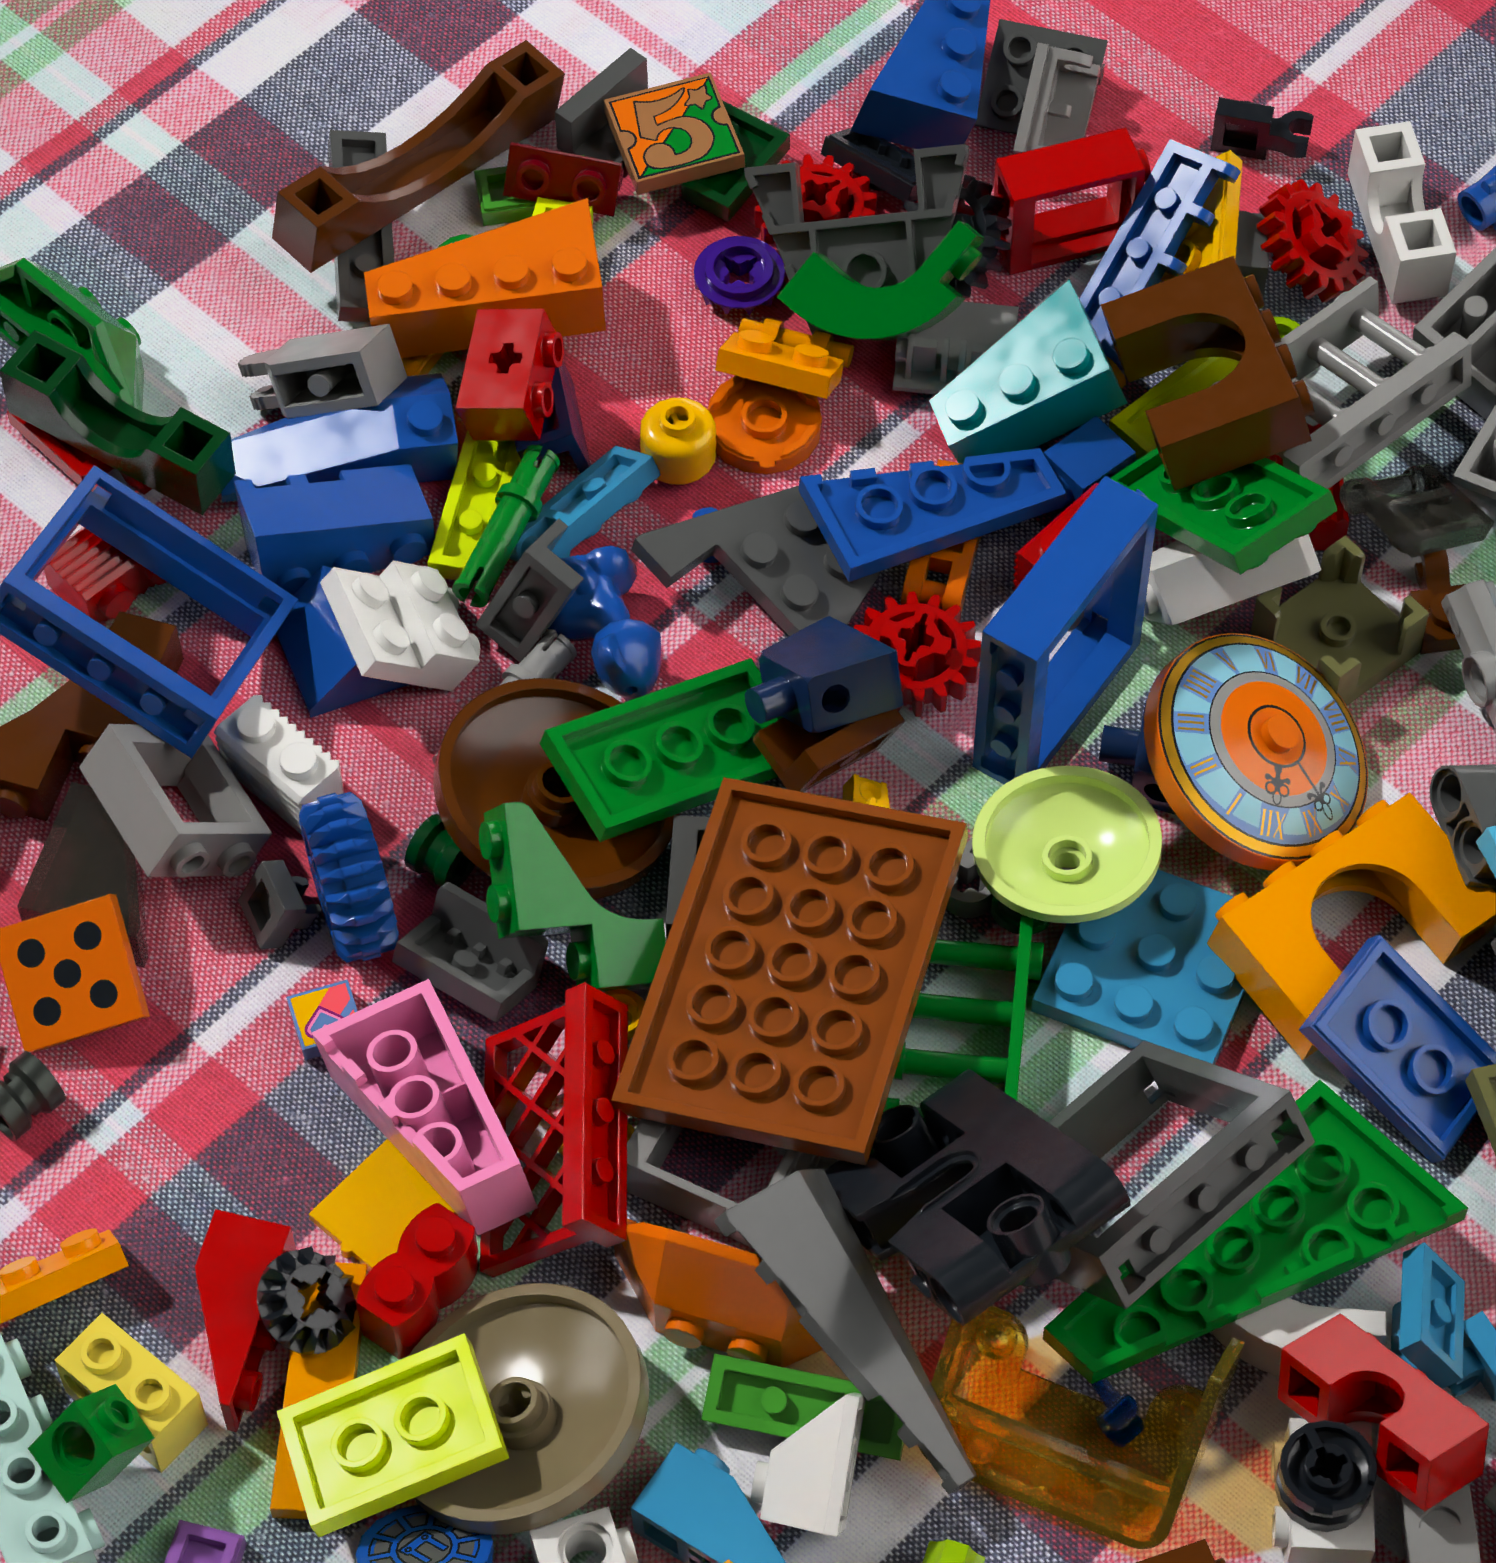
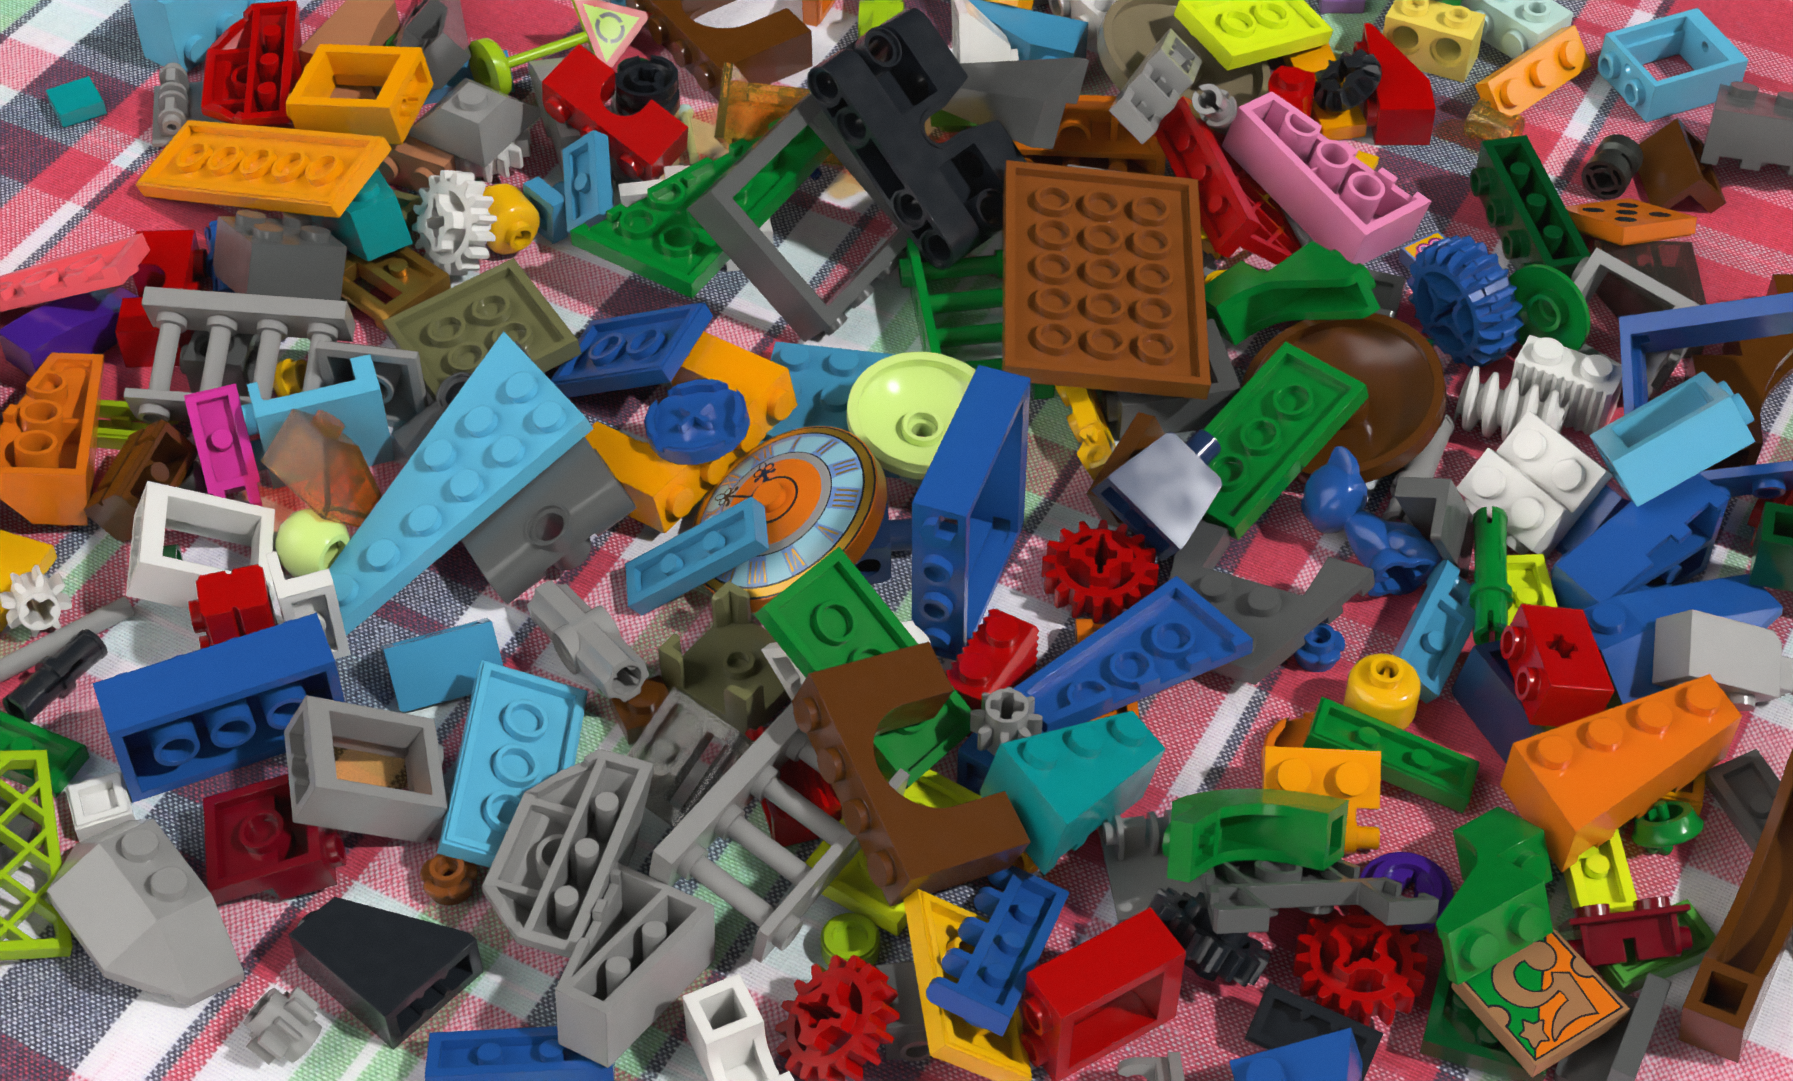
camera: 165 degrees right, 10 degrees down
(133, 1209) = (1483, 116): none -> clear yellow bush
(190, 1002) = (1525, 206): none -> dark green brick
(264, 810) = (1551, 306): none -> green dish
(316, 556) = (1674, 437): none -> medium azure window
(366, 745) = (1504, 407): none -> white piece
(544, 1178) = (1215, 106): none -> light grey pin
(589, 1291) = (1156, 86): none -> light grey slope
(659, 372) = (1405, 758): none -> green tile
(677, 182) = (1502, 894): none -> green arch
(1087, 432) = (1004, 718): none -> light grey gear
(1260, 1537) = (685, 115): none -> hinge
(1345, 866) = (697, 422): none -> blue tile
(1367, 722) = (696, 556): none -> dark azure plate

